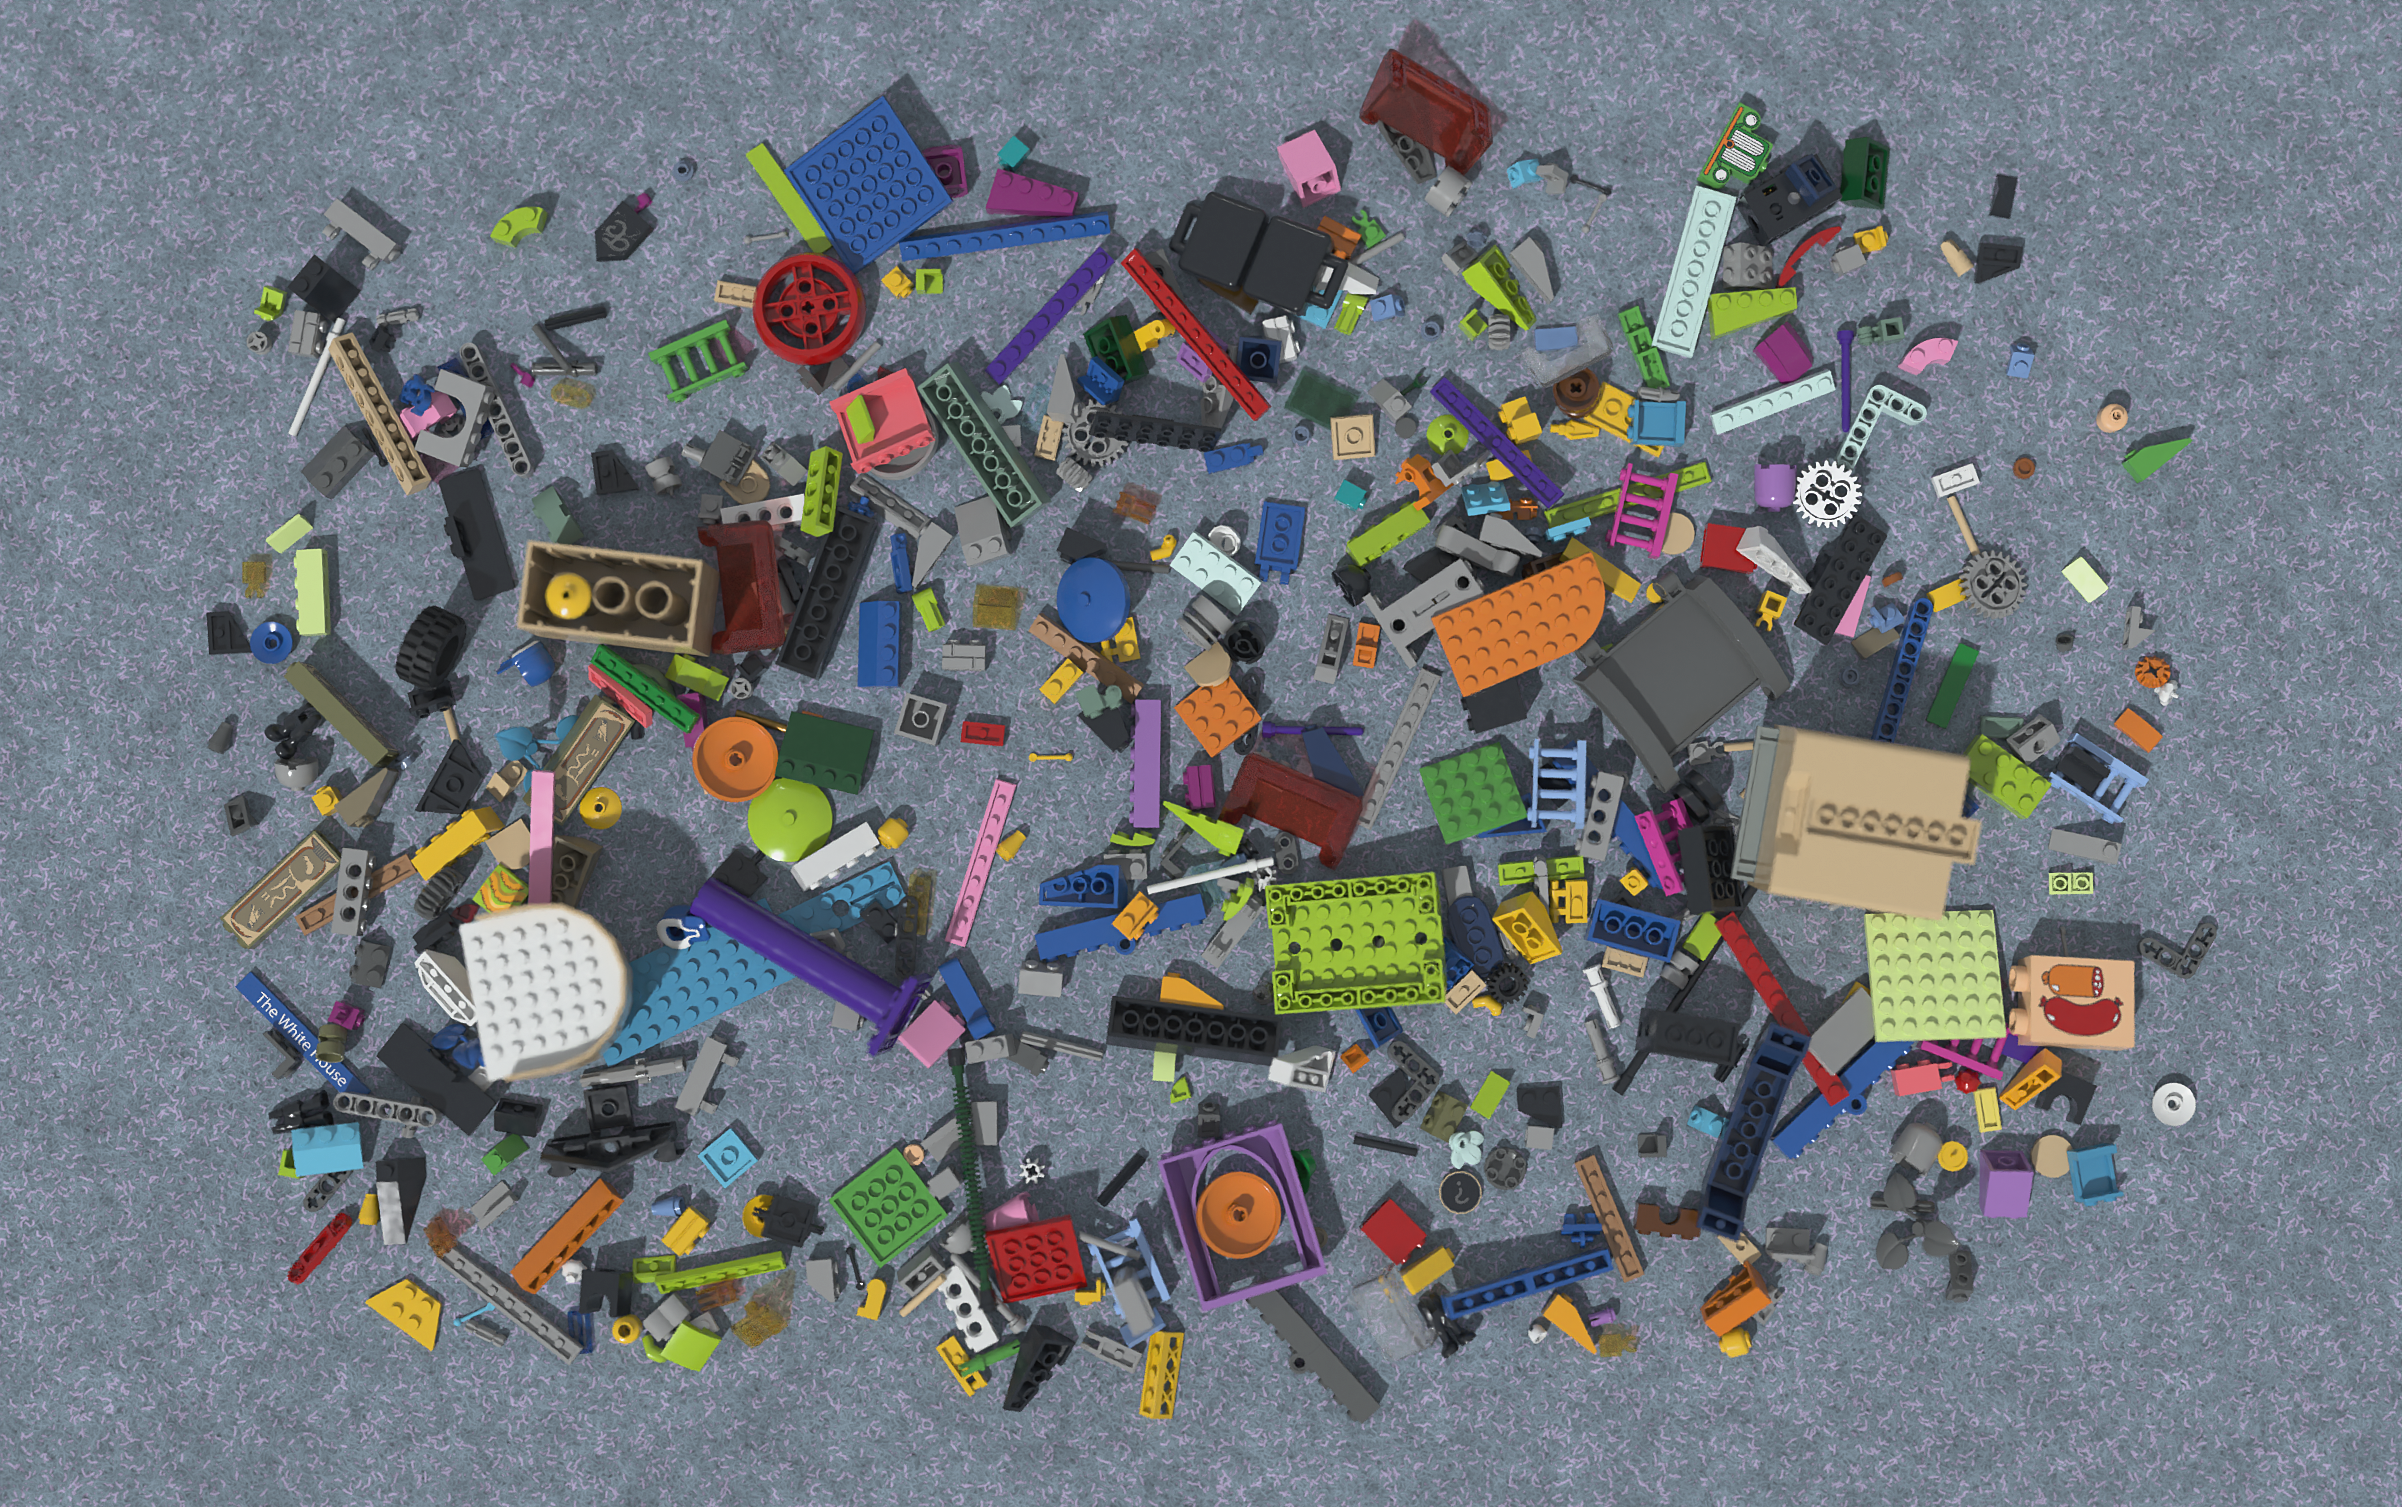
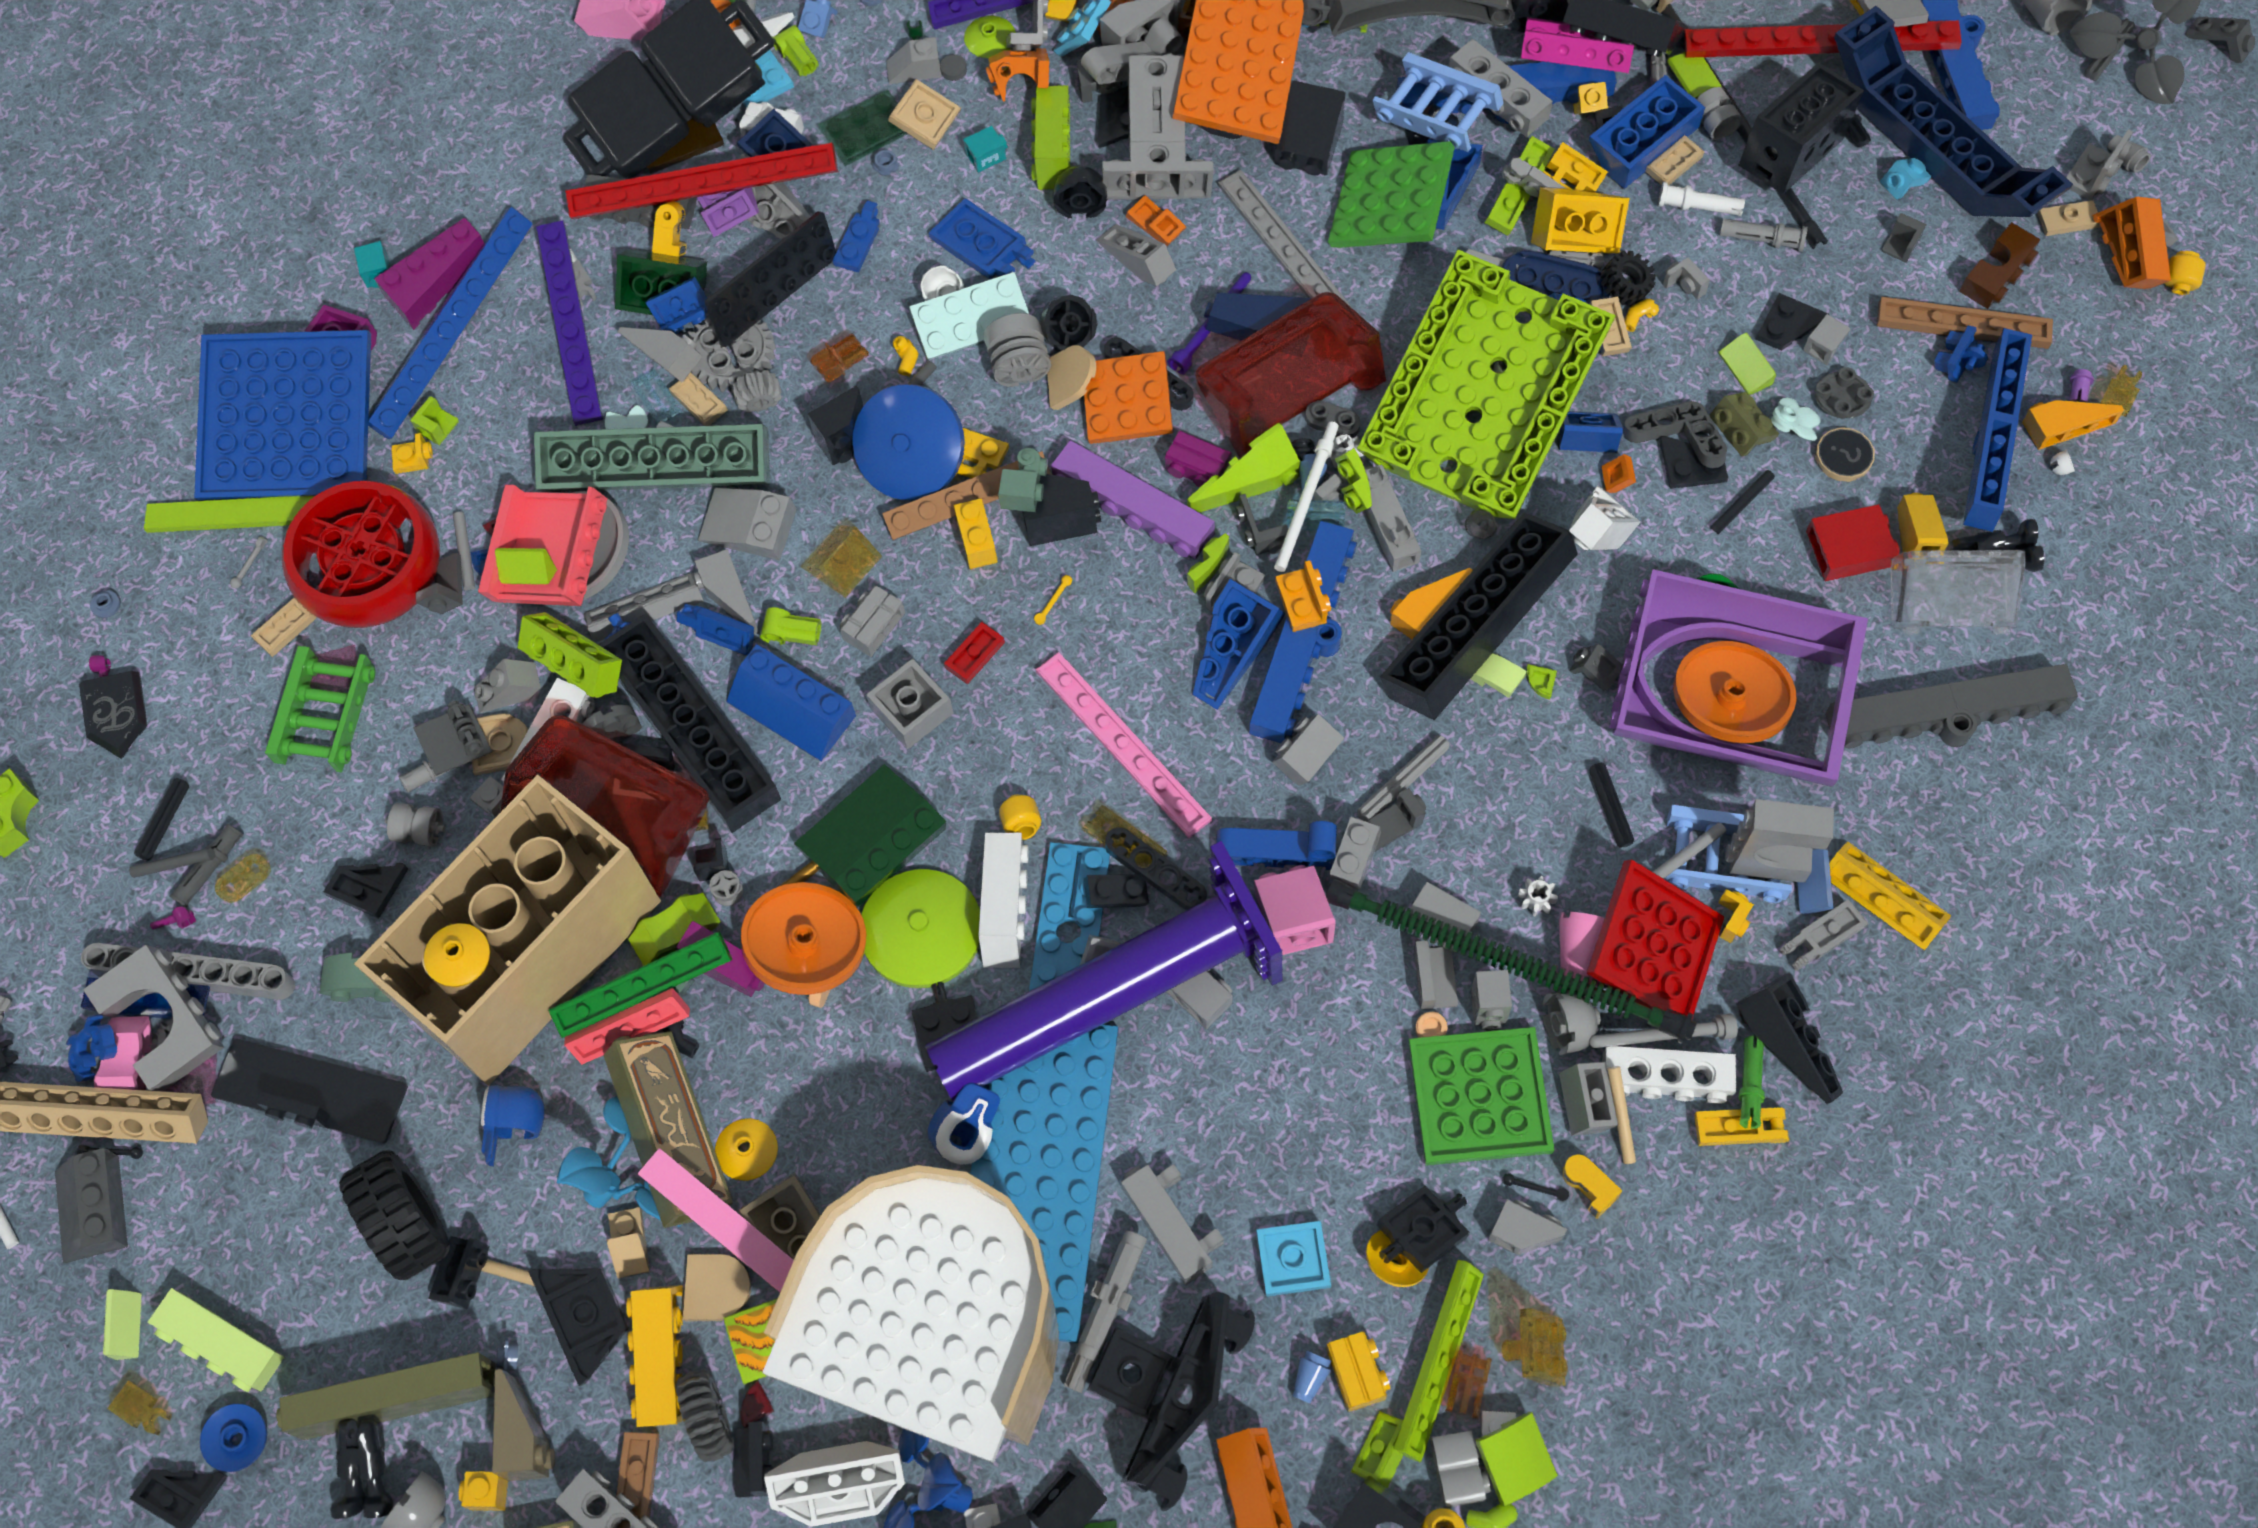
camera: 55 degrees left, 20 degrees down
(1009, 847) = (1126, 698): yellow cone -> none

